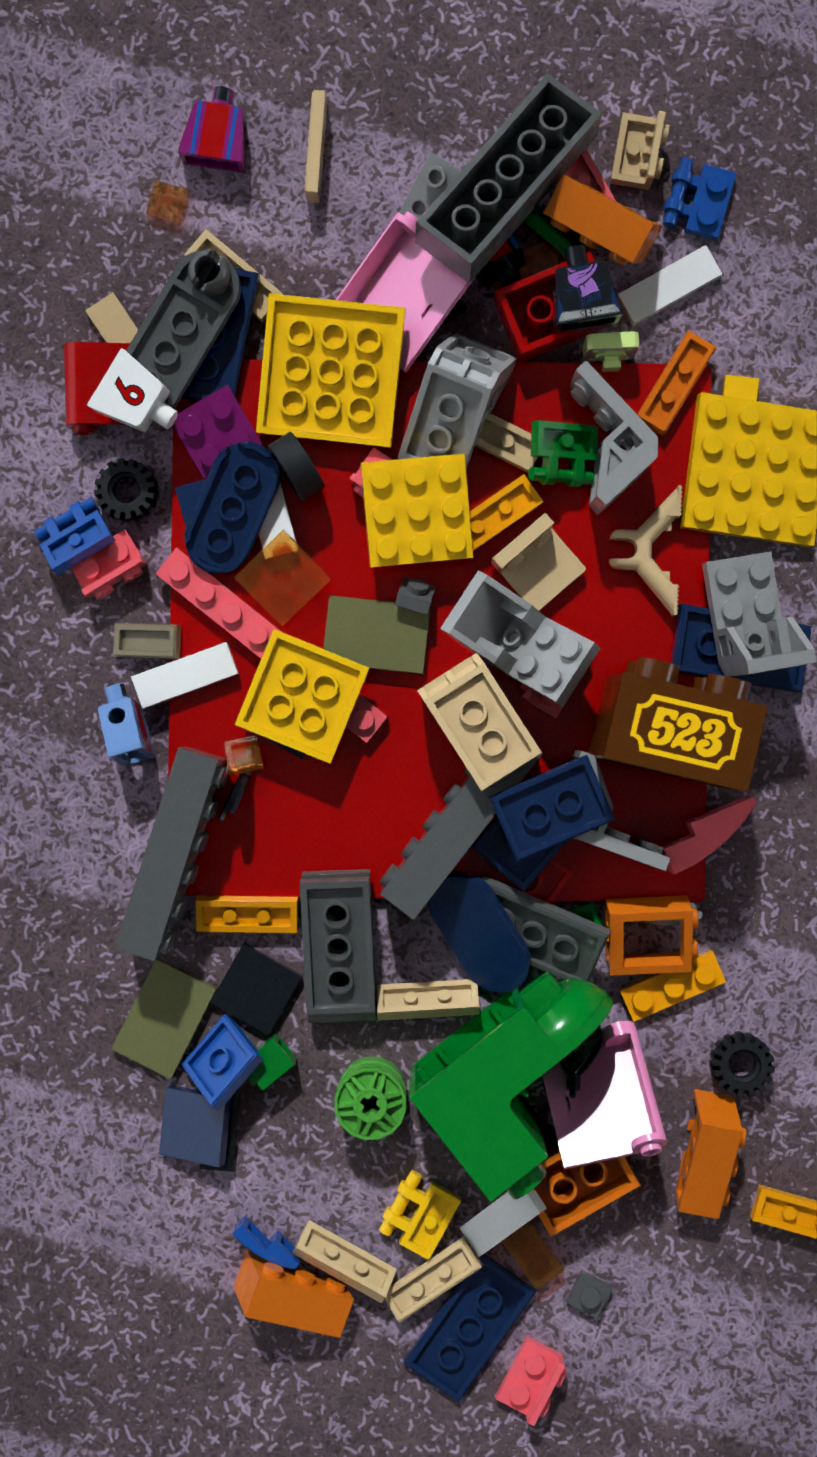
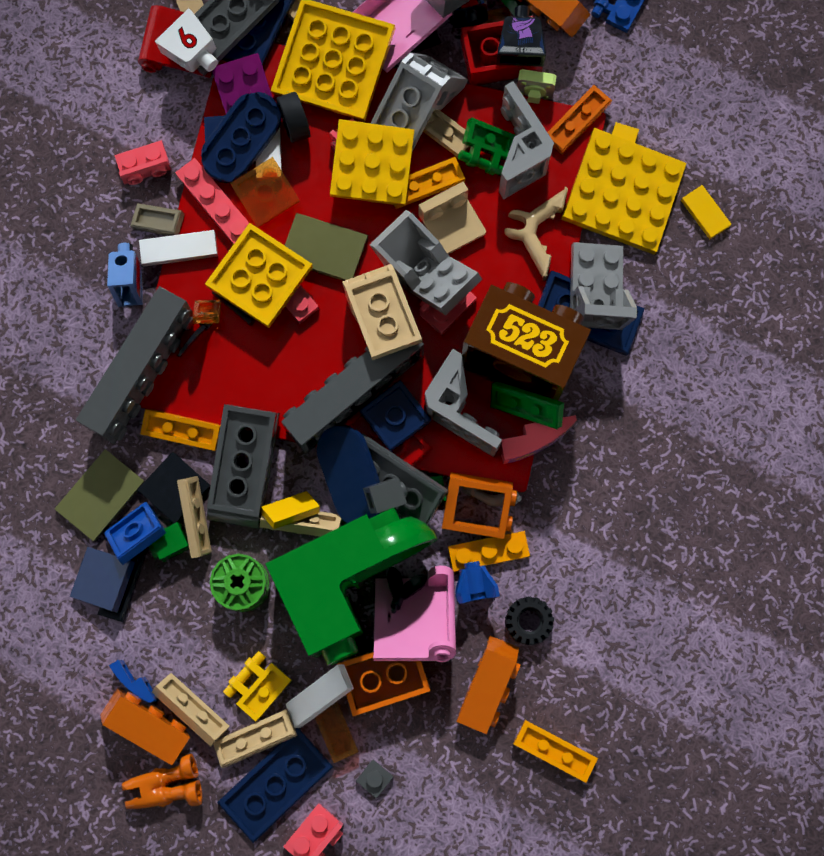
camera: 15 degrees right, 10 degrees down
(78, 540) = (123, 136): blue plate -> none
(106, 490) = (169, 100): black tyre -> none
(292, 1025) = (194, 516): none -> tan tile
(326, 1368) = (154, 788): none -> orange piece
(412, 991) = (290, 510): none -> yellow tile
(415, 595) = (358, 224): dark grey plate -> none
(533, 956) = (385, 495): none -> dark grey brick
(551, 808) = (421, 383): dark blue tile -> none
(666, 1037) = (475, 583): none -> blue brick
(669, 285) = (587, 55): white tile -> none
(689, 797) = (527, 405): none -> green tile

